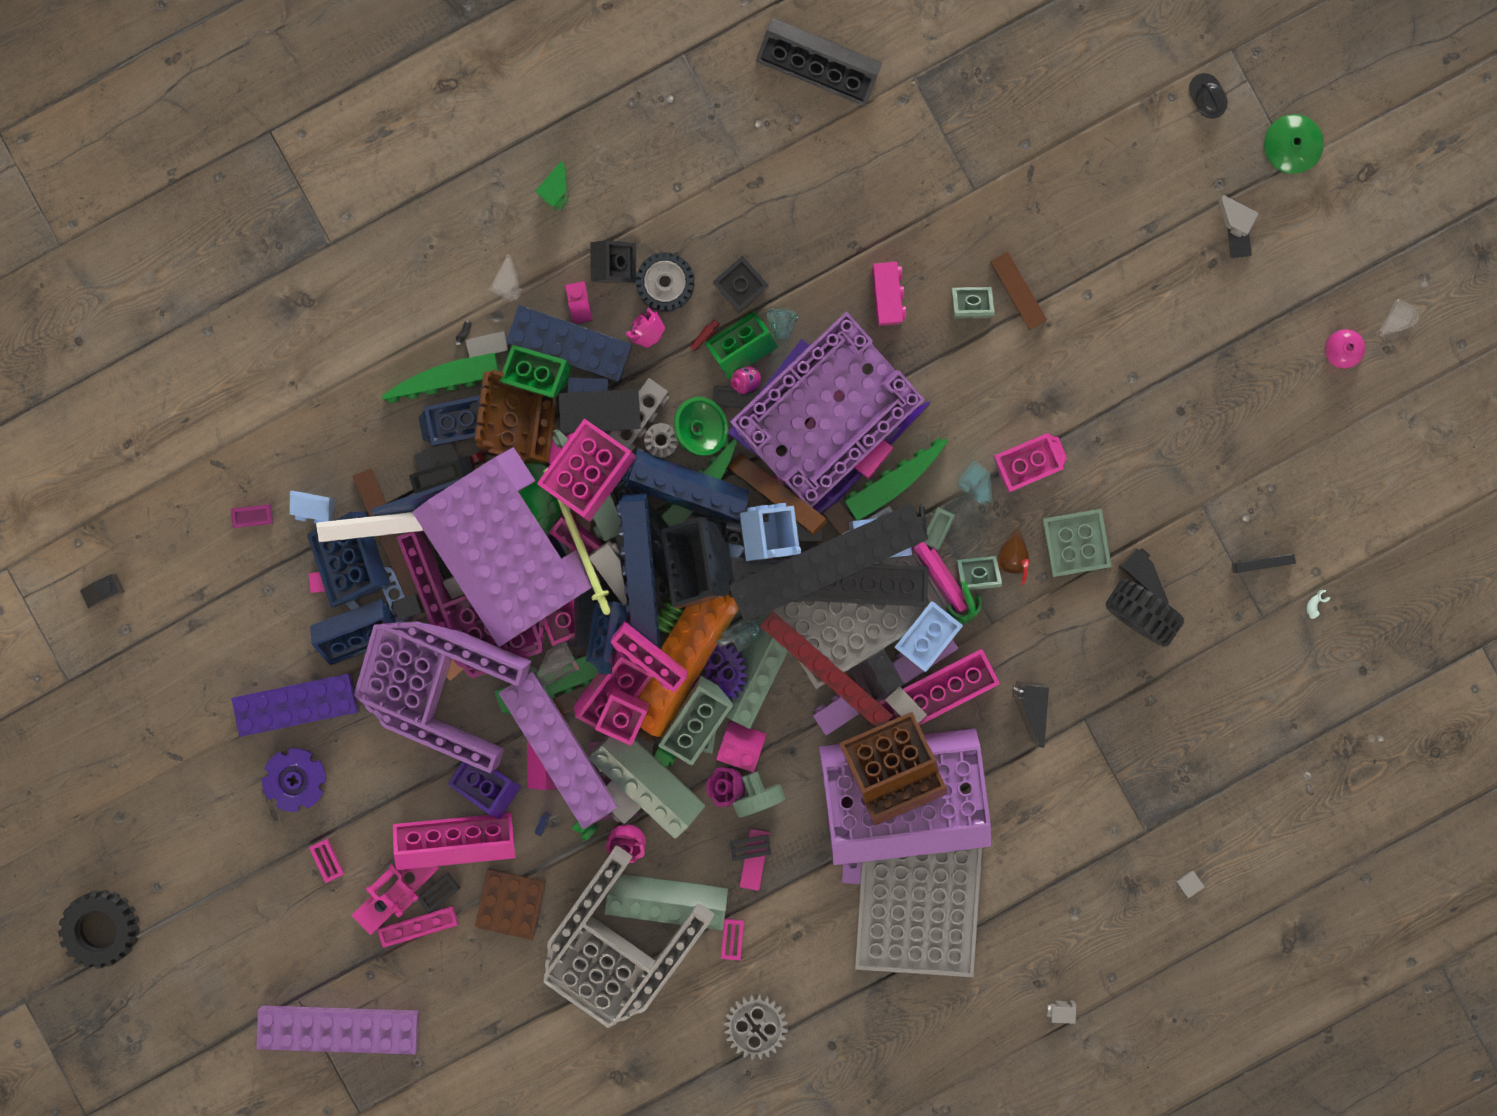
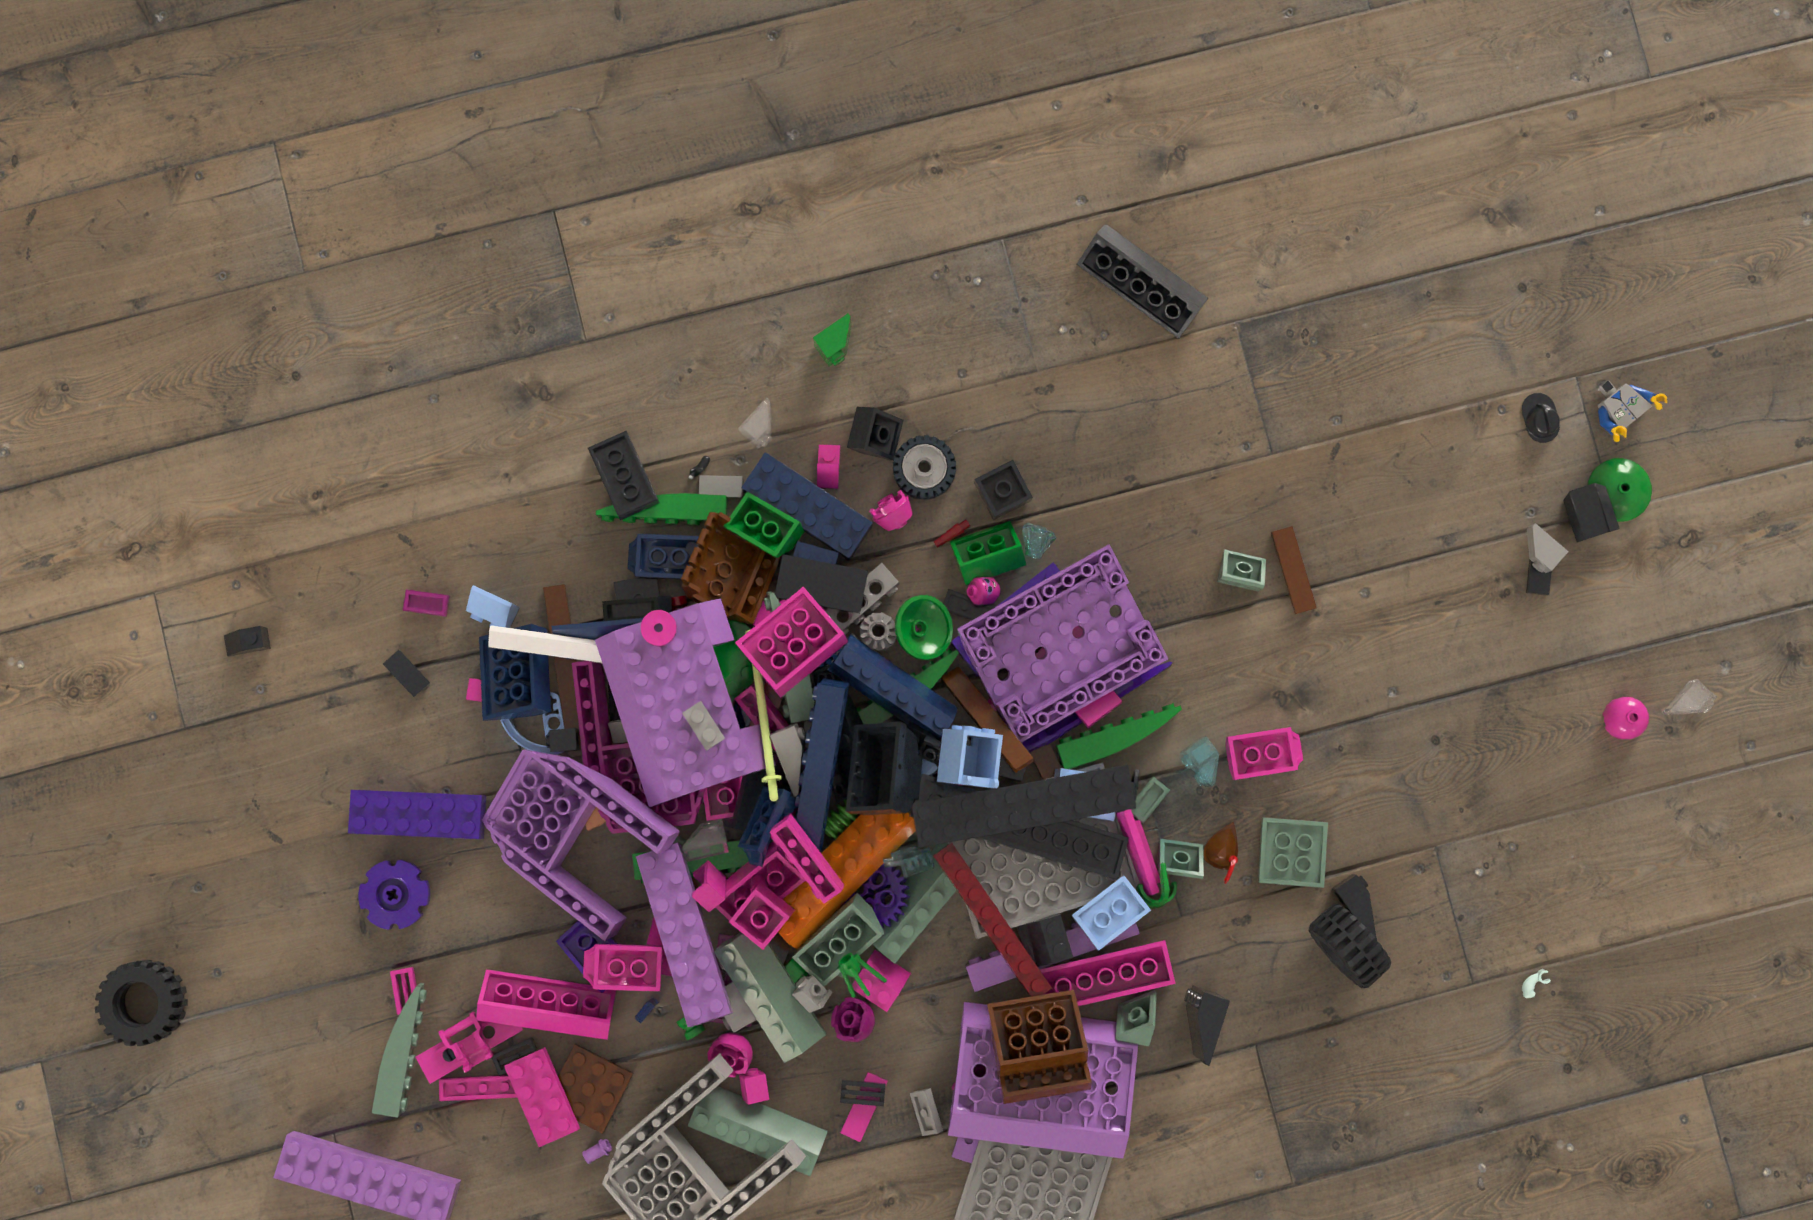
camera: 15 degrees right, 5 degrees down
(251, 583) = (406, 673): none -> black slope
(337, 920) = (398, 1058): none -> sand green slope
(349, 632) = (494, 751): dark blue slope -> none
(397, 357) = (623, 475): none -> black tile
(462, 479) = (648, 628): none -> dark pink piece
(471, 921) = (542, 1097): none -> dark pink plate
(513, 791) = (623, 967): none -> dark pink slope
(528, 564) = (703, 725): none -> light grey plate
(532, 955) = (602, 1148): none -> medium lavender pin
(573, 702) = (713, 886): none -> dark pink panel
(653, 865) = (754, 1086): none -> dark pink brick
(683, 773) = (811, 993): none -> light grey brick
(710, 740) = (849, 965): none -> green plant
(734, 922) = (811, 1206): dark pink tile -> none
(757, 796) = (884, 1040): sand green piece -> none
(810, 850) = (926, 1112): none -> light grey plate
(888, 294) = (1156, 538): dark pink brick -> none
(903, 704) = (1067, 979): light grey tile -> none
(974, 723) = (1137, 1019): none -> sand green slope
(1263, 563) = (1487, 925): black piece -> none
(1271, 171) = (1590, 512): none -> black slope
(1280, 67) = (1624, 406): none -> torso

